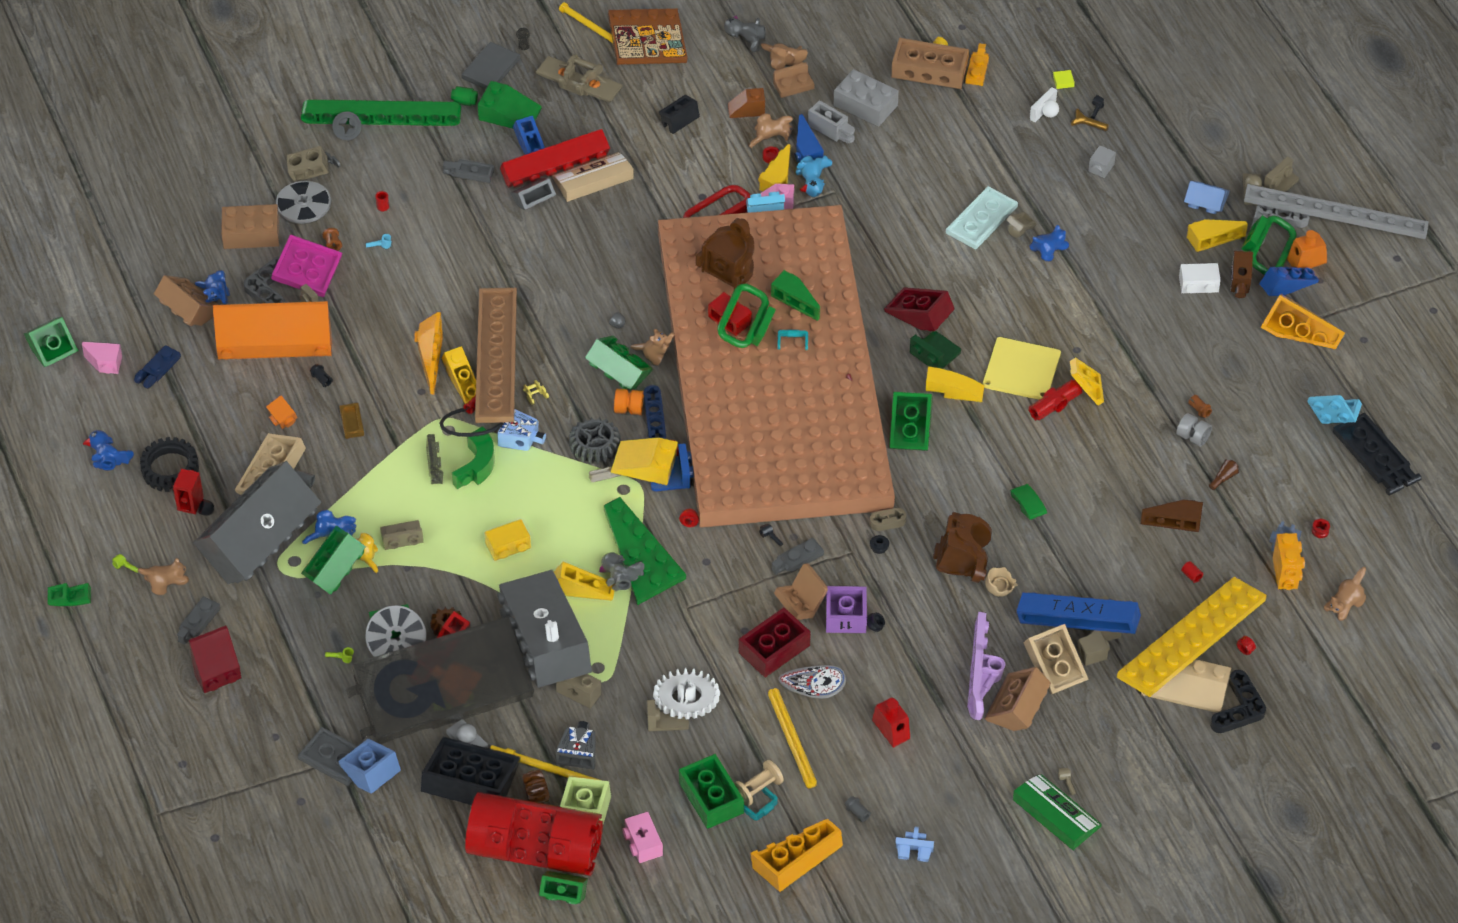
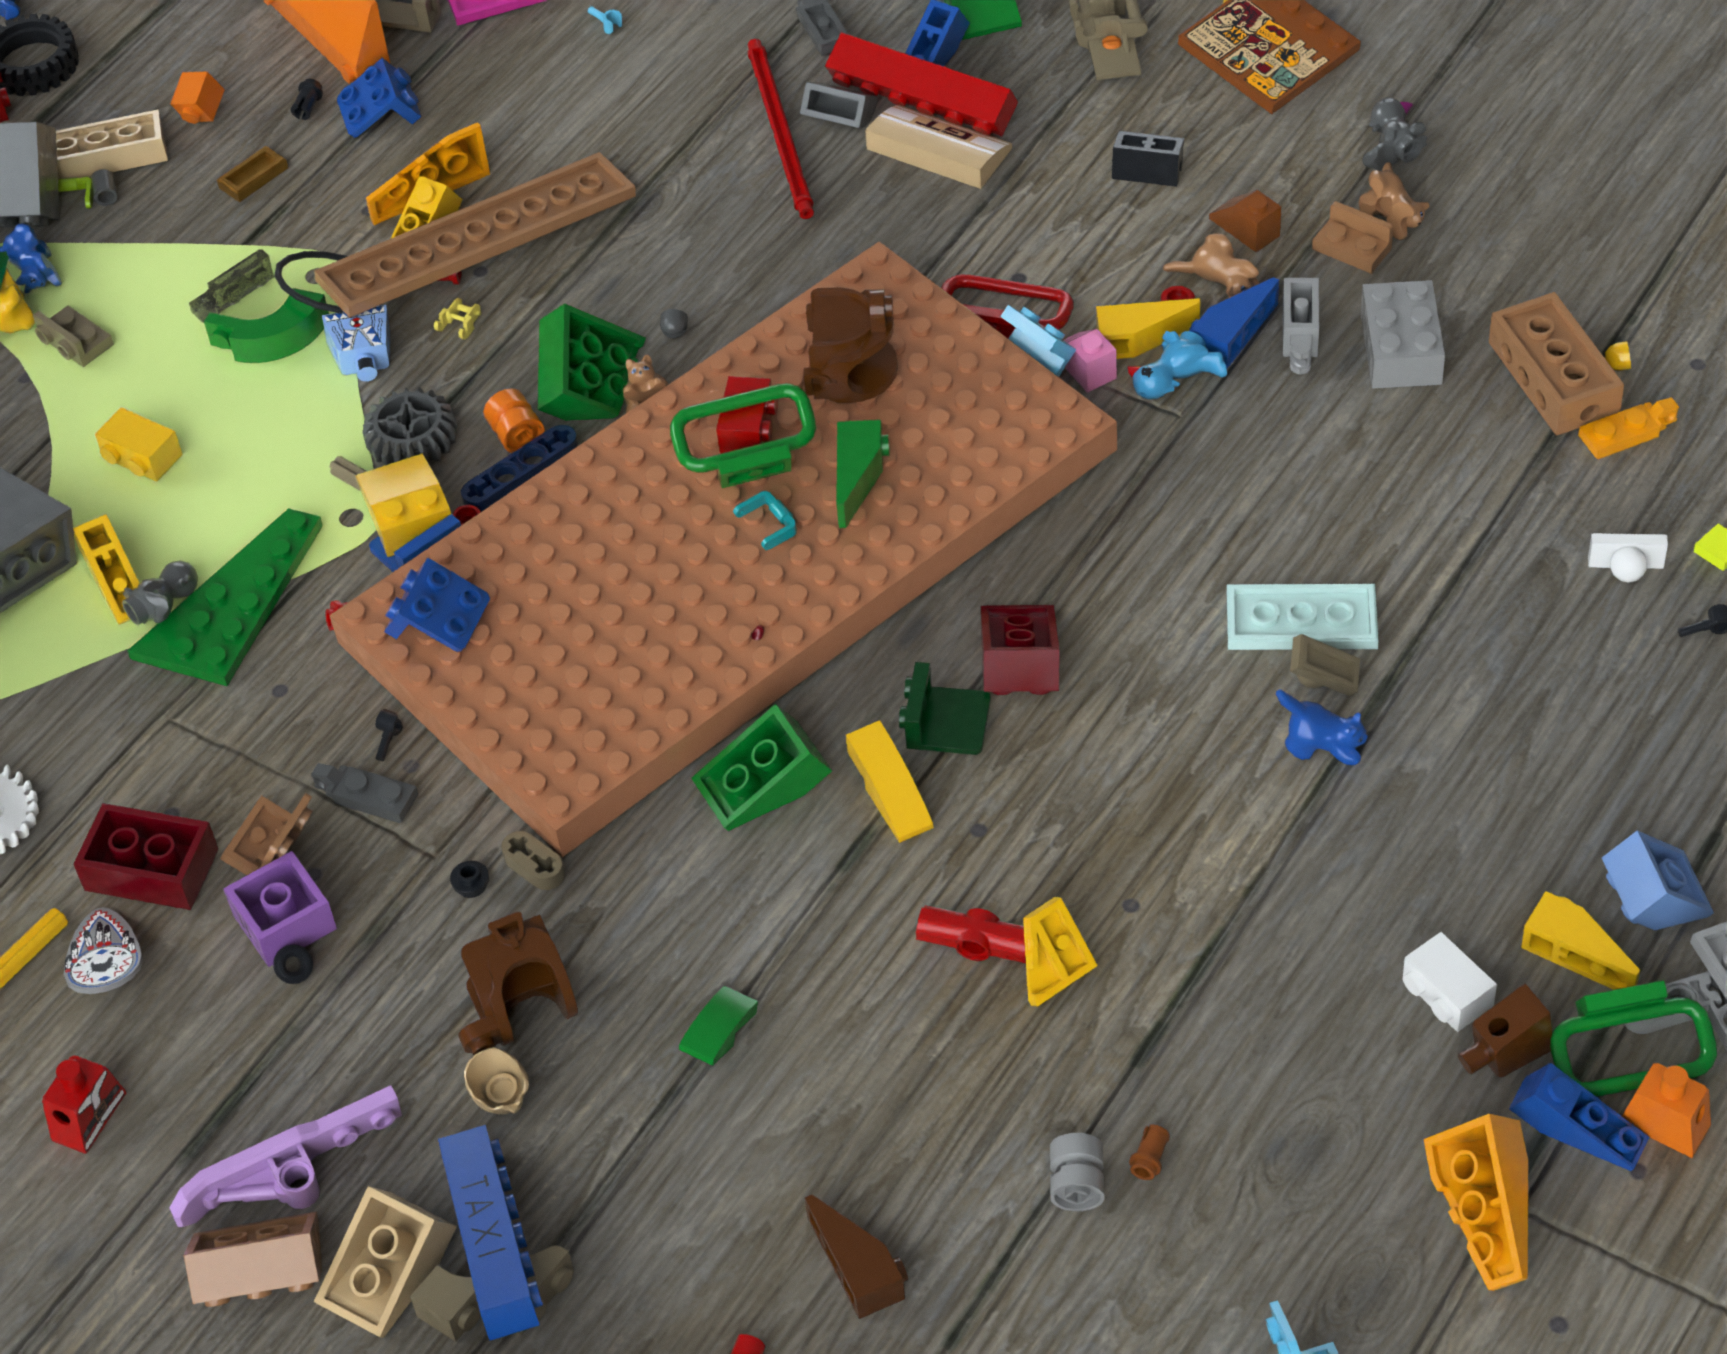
camera: 60 degrees right, 0 degrees up
(351, 350) = (374, 94): none -> blue bracket
(527, 221) = (802, 200): none -> red piece
(738, 468) = (437, 605): none -> blue bracket
(1021, 368) = (1018, 852): light yellow piece -> none
(1082, 119) = (1657, 619): pearl gold piece -> none
(1102, 161) = (1580, 696): light grey brick -> none
(1228, 470) = (1025, 1279): reddish brown cone -> none

